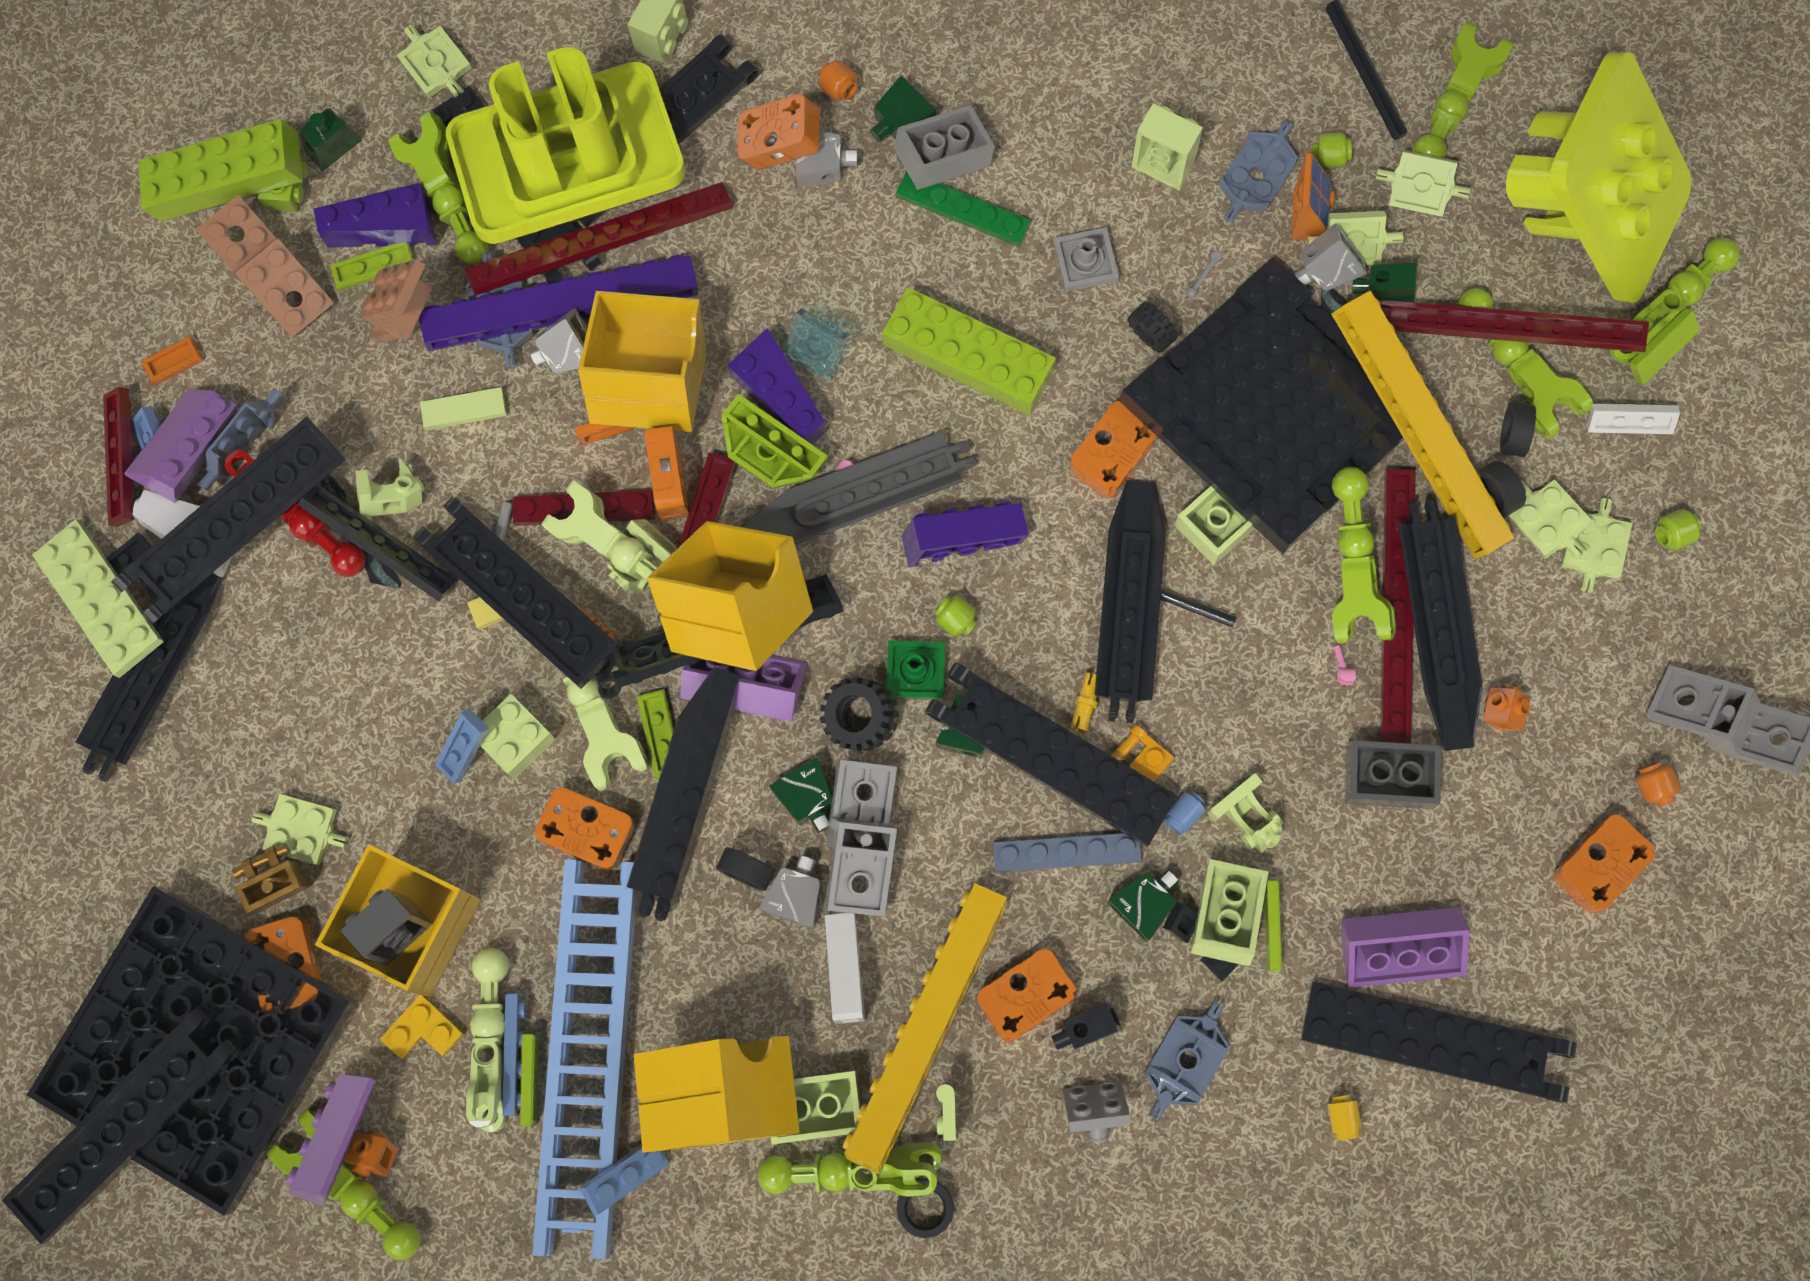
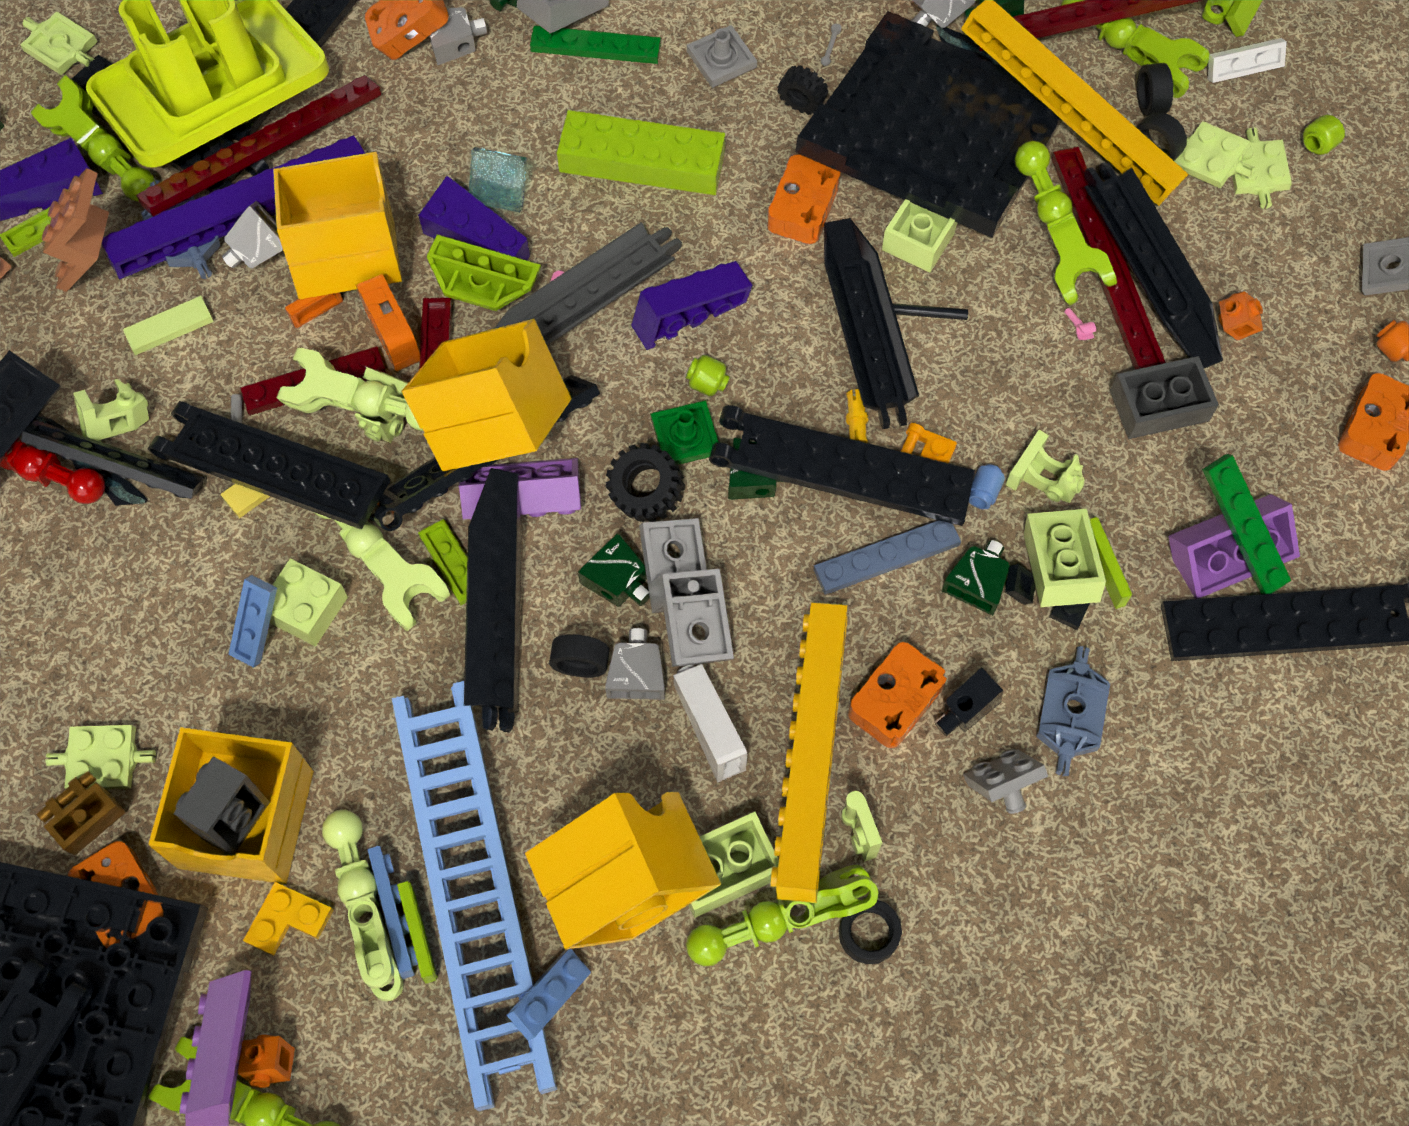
camera: 25 degrees left, 10 degrees down
(568, 813) = (397, 676): orange axle -> none
(1345, 1118) = (1243, 715): yellow brick -> none
(1415, 938) = (1246, 524): none -> green plate

